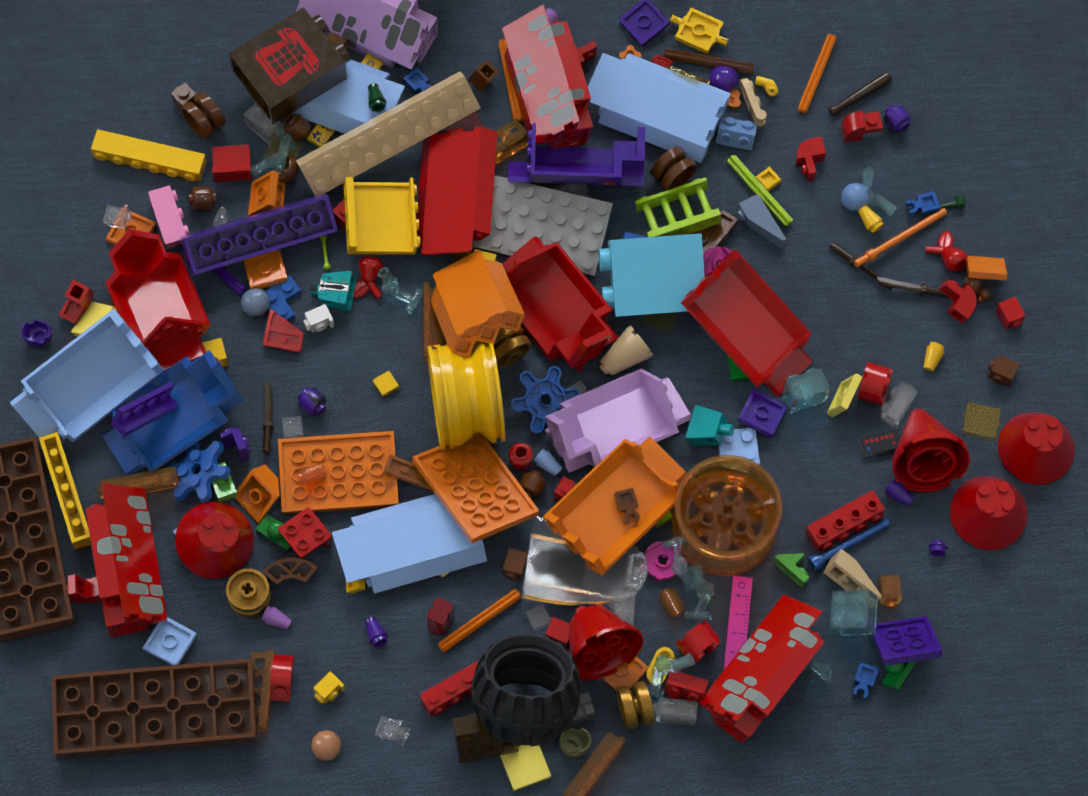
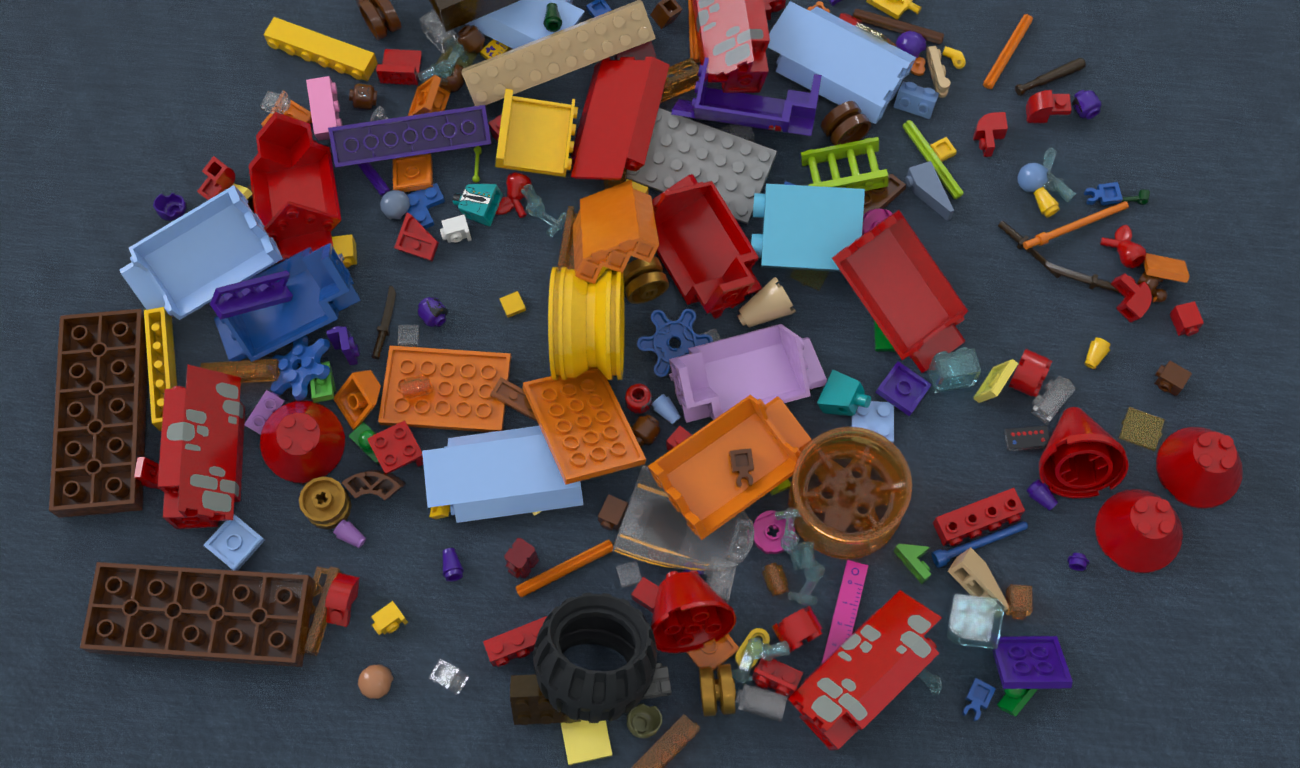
camera: 15 degrees right, 0 degrees up
(172, 517) = (266, 406): none -> medium lavender hinge

